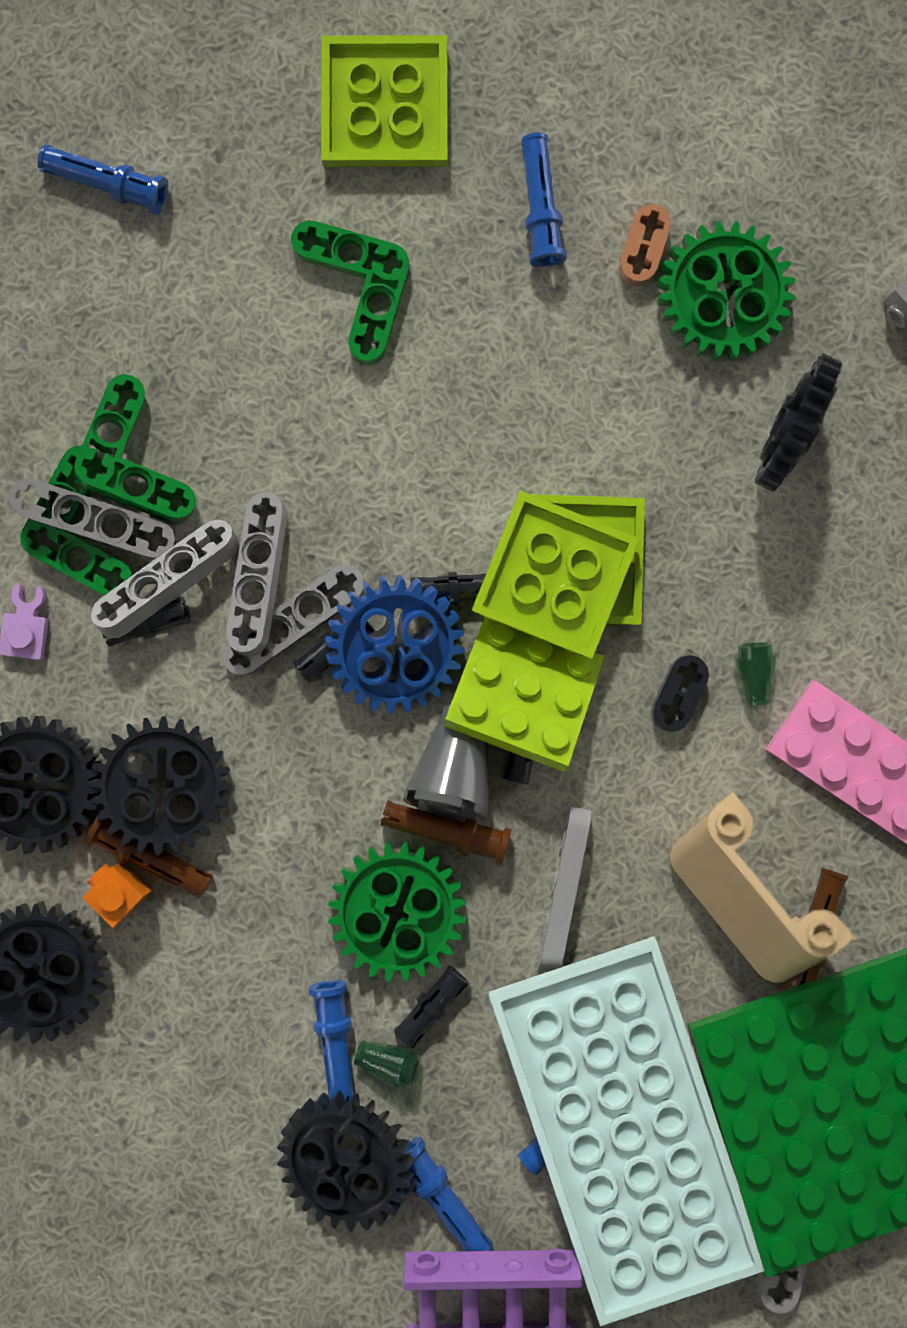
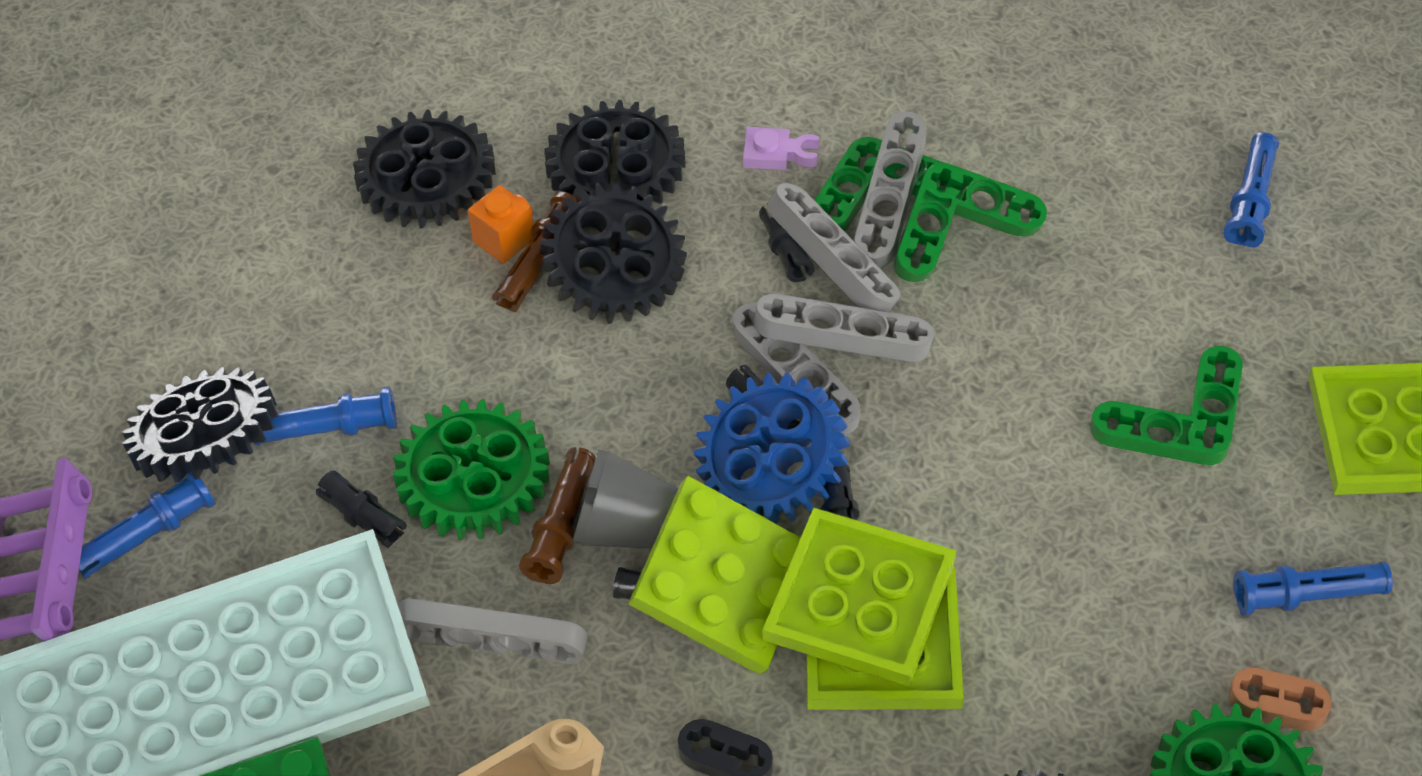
camera: 85 degrees right, 35 degrees down
(388, 1062) = (301, 469): clear green cone -> none

